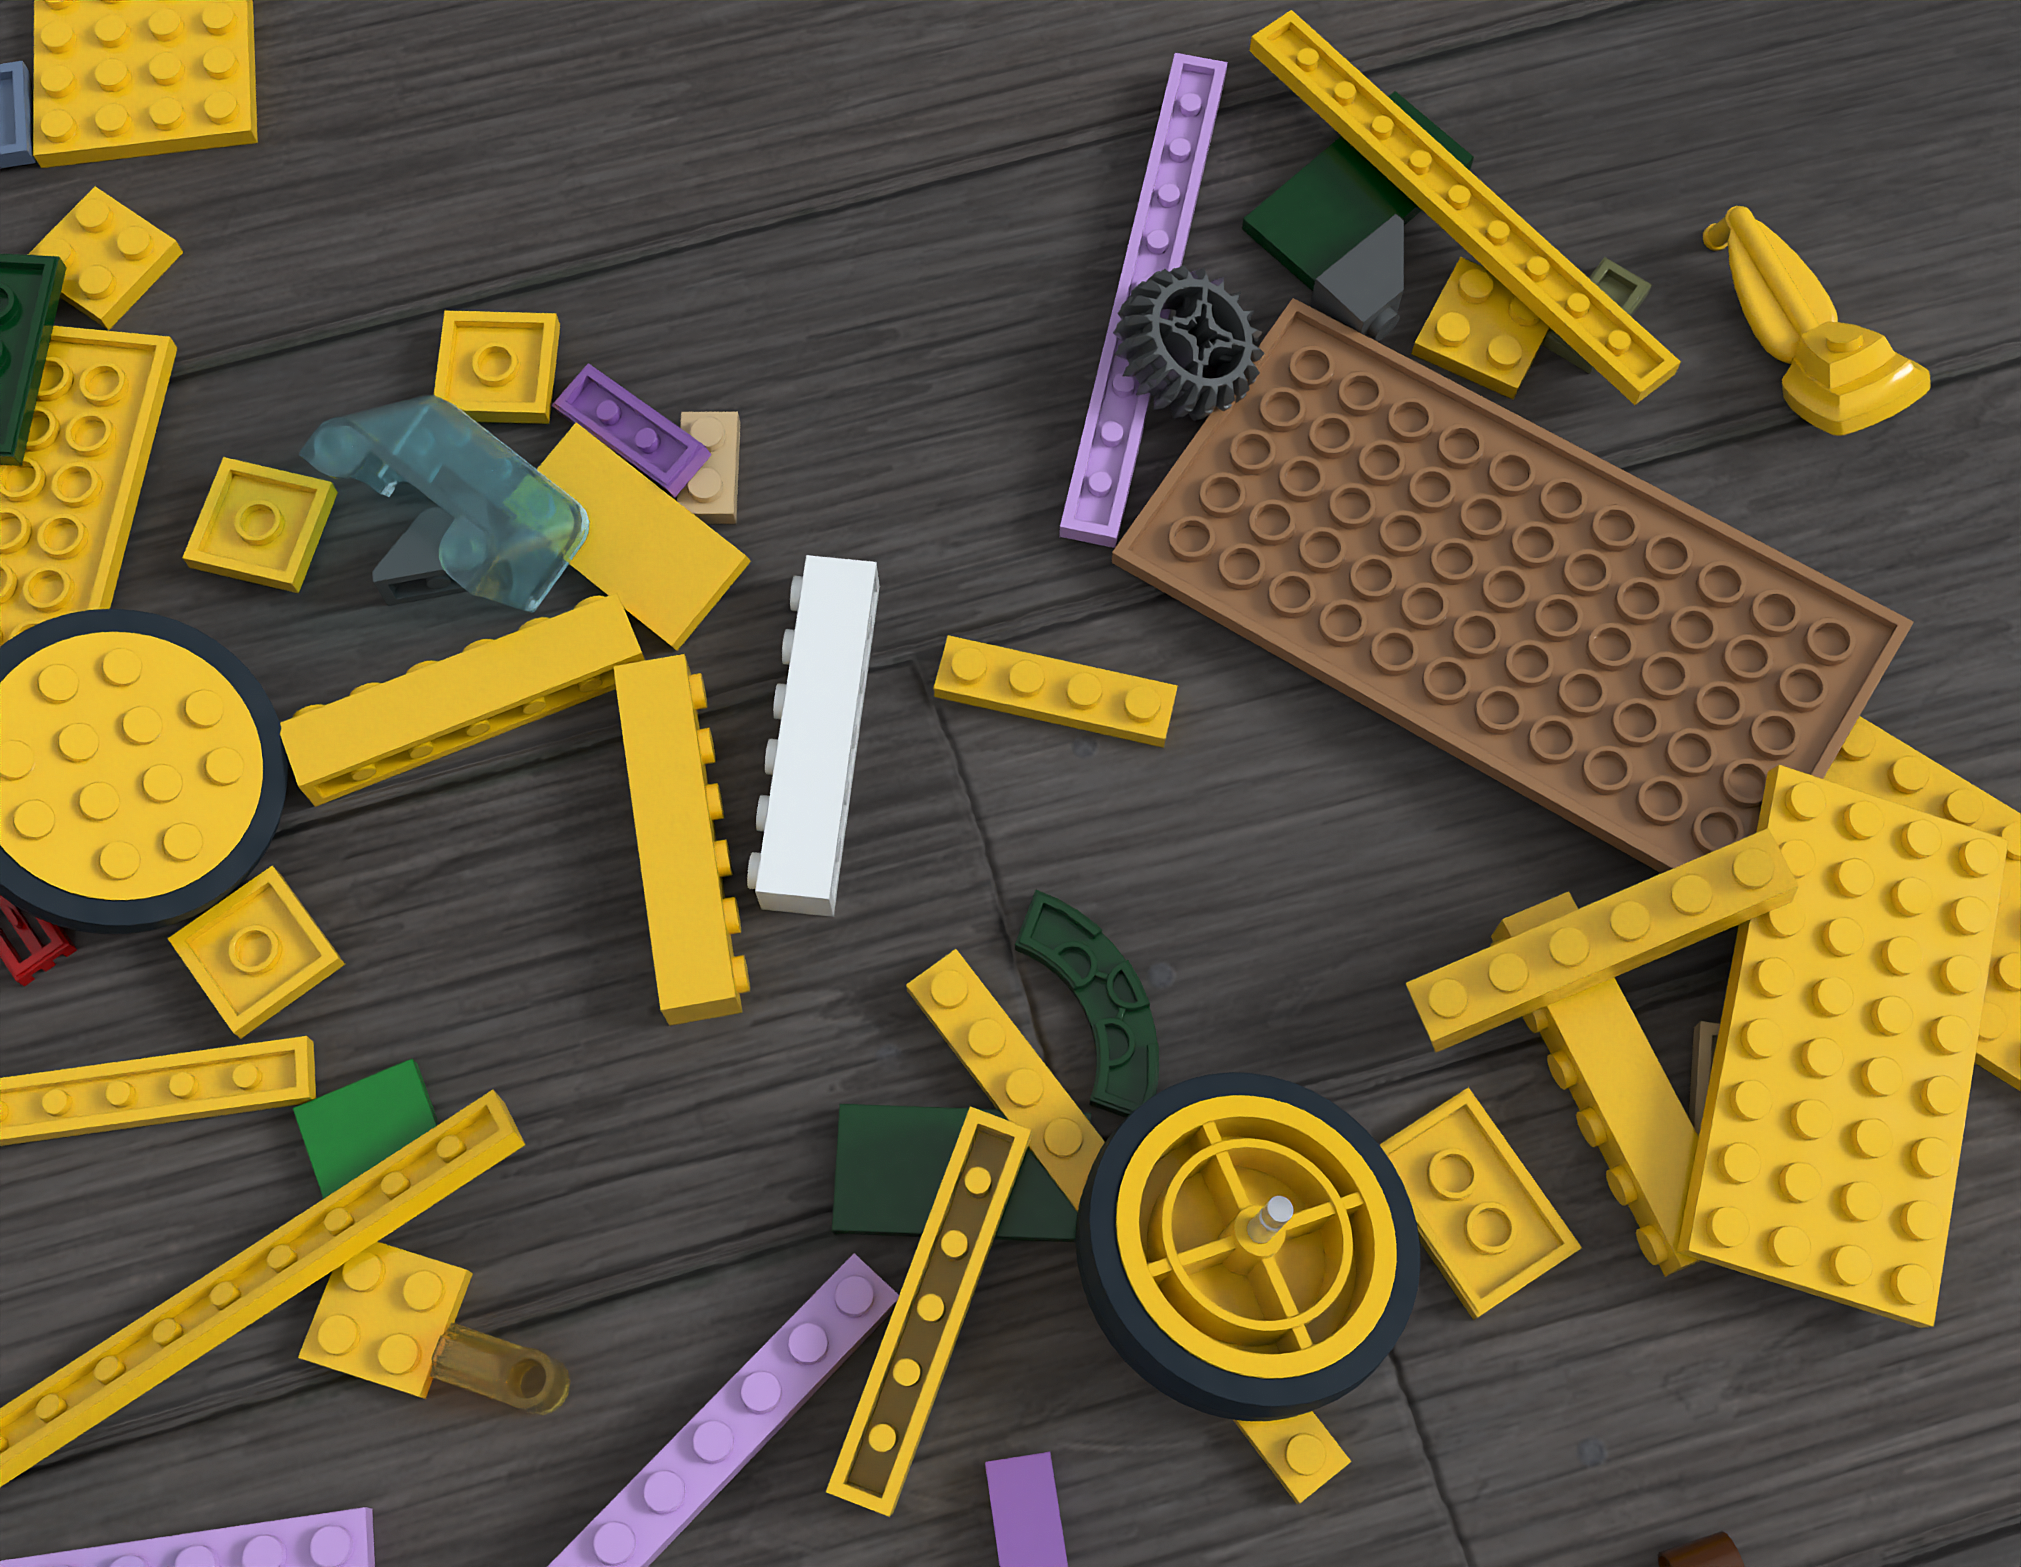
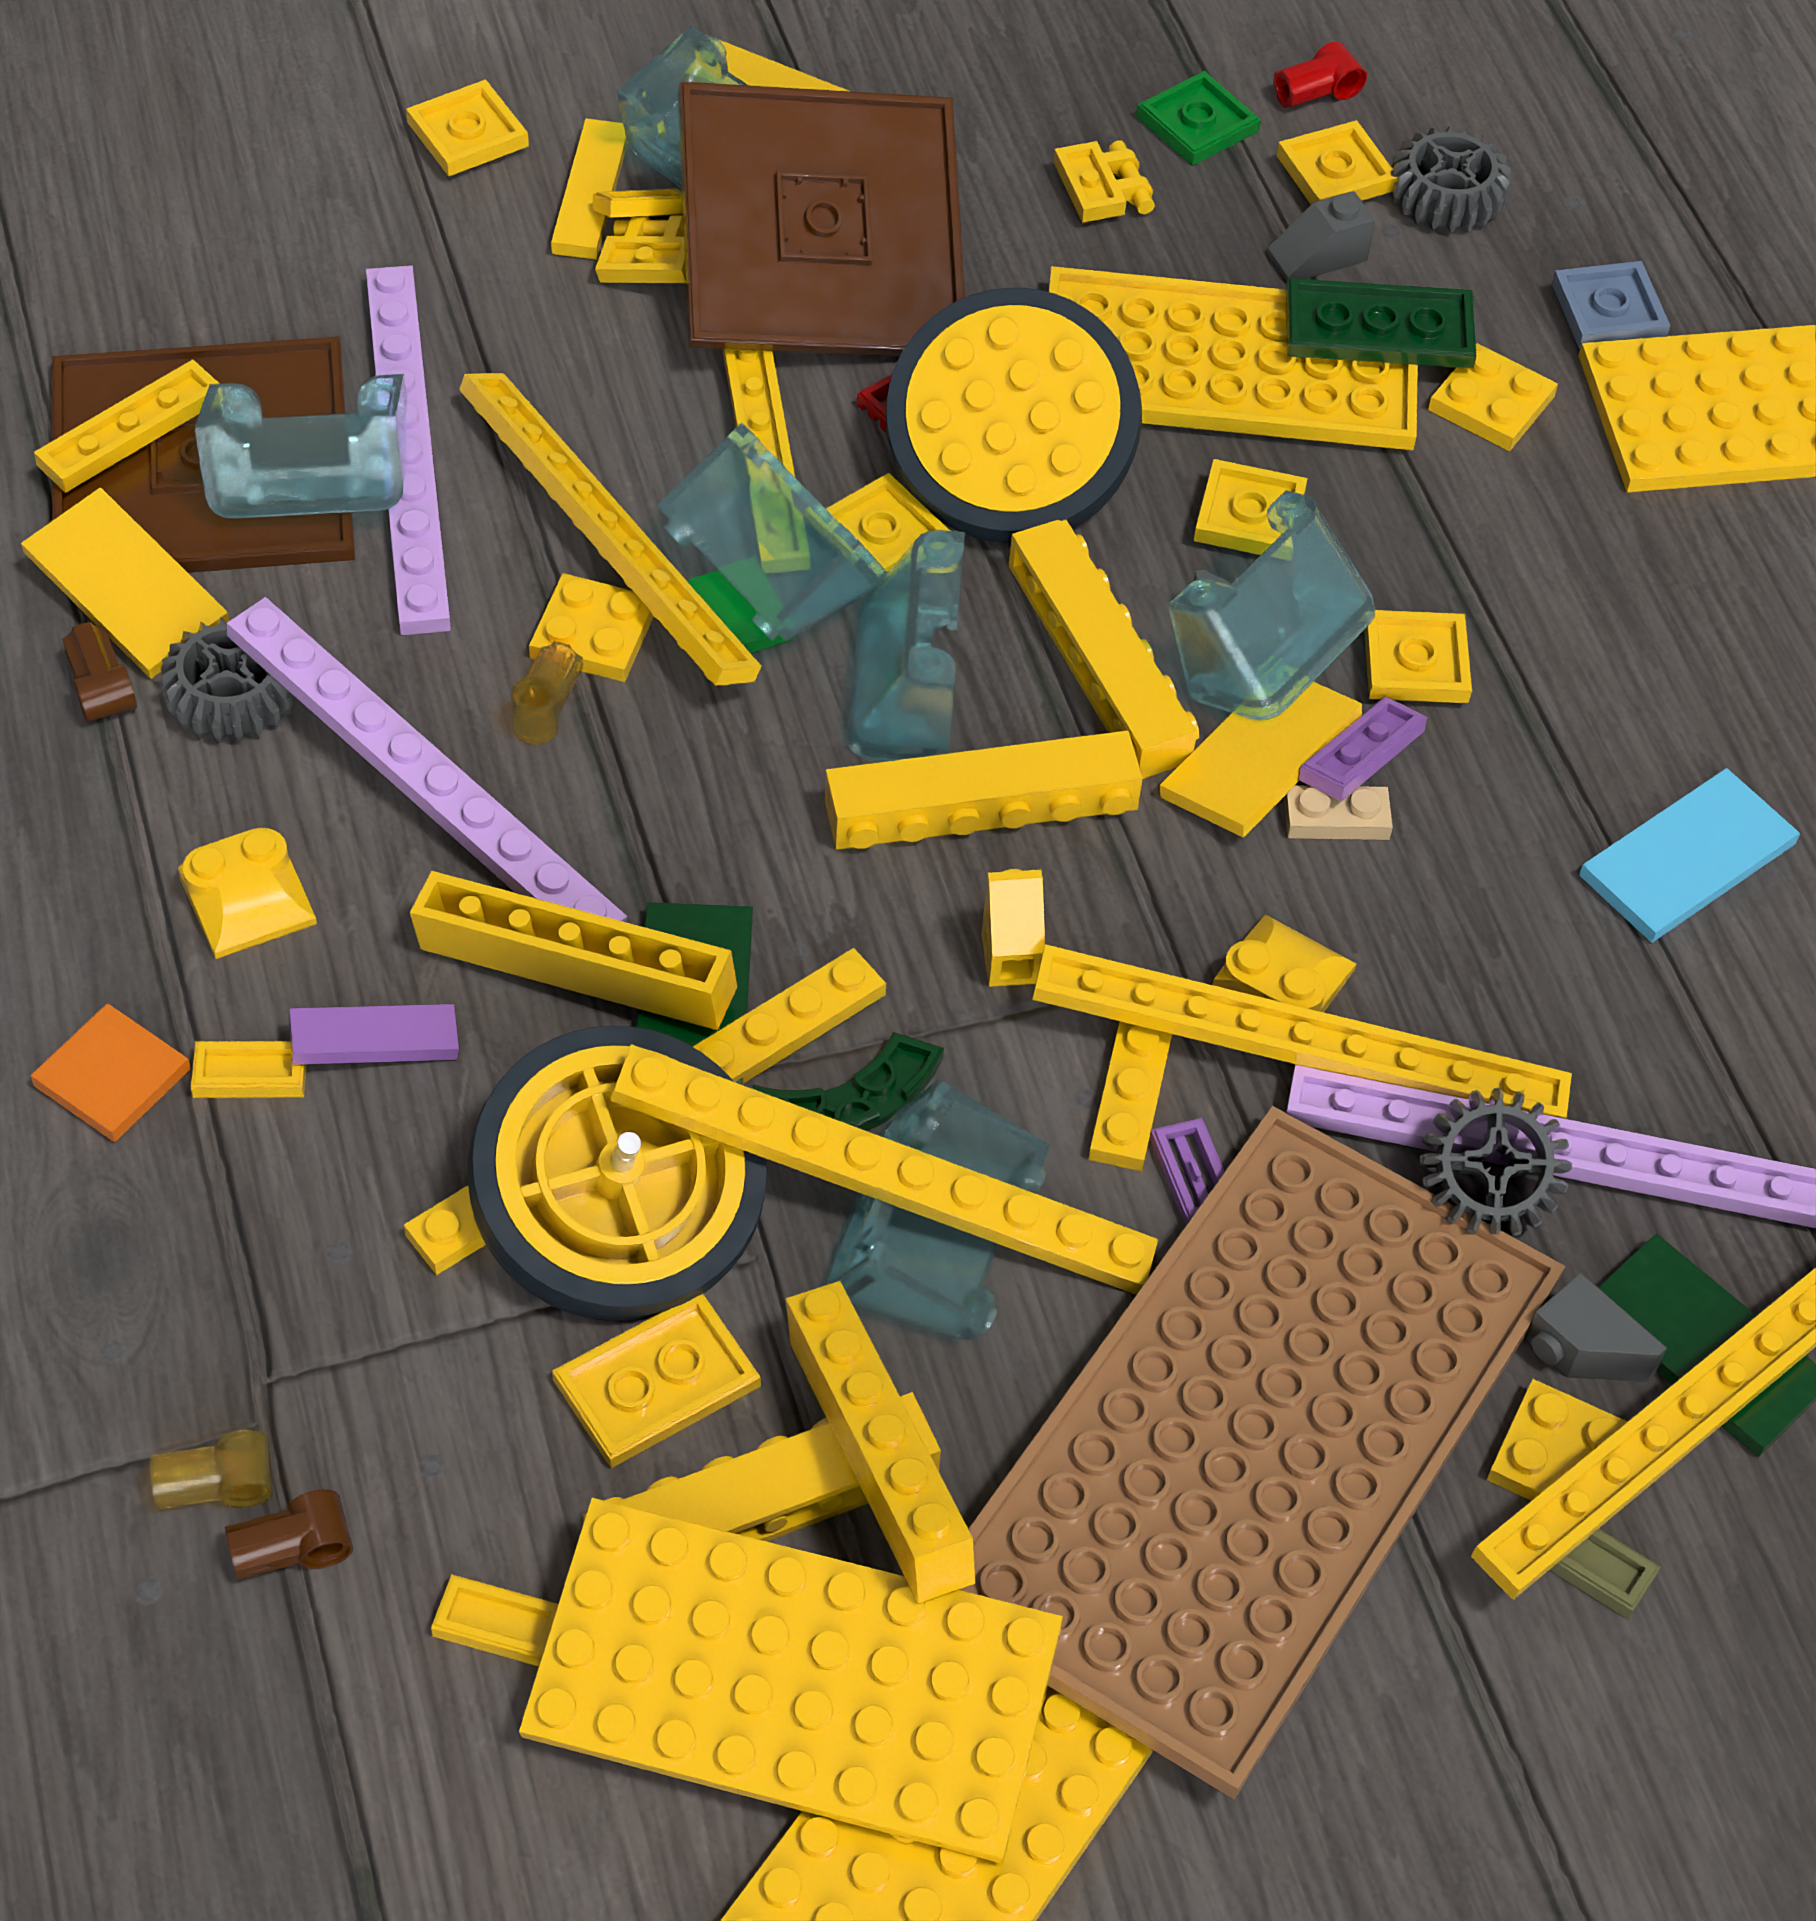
camera: 85 degrees right, 15 degrees down
(292, 1075) = (769, 537): none -> clear light blue windscreen
(482, 933) = (899, 680): none -> clear light blue windscreen
(773, 138) = (1689, 855): none -> medium azure tile
(817, 737) = (1091, 885): white brick -> none
(891, 802) = (1013, 927): none -> yellow slope
(930, 536) = (1284, 967): none -> yellow slope
(1026, 530) = (1290, 1031): none -> yellow plate
(1181, 662) = (1171, 1171): none -> medium lavender tile
(1233, 964) = (884, 1169): none -> yellow plate
(1268, 910) = (919, 1266): none -> clear light blue windscreen
(1777, 1363) = (494, 1620): none -> yellow tile
(1838, 371) = (1541, 1776): yellow piece -> none

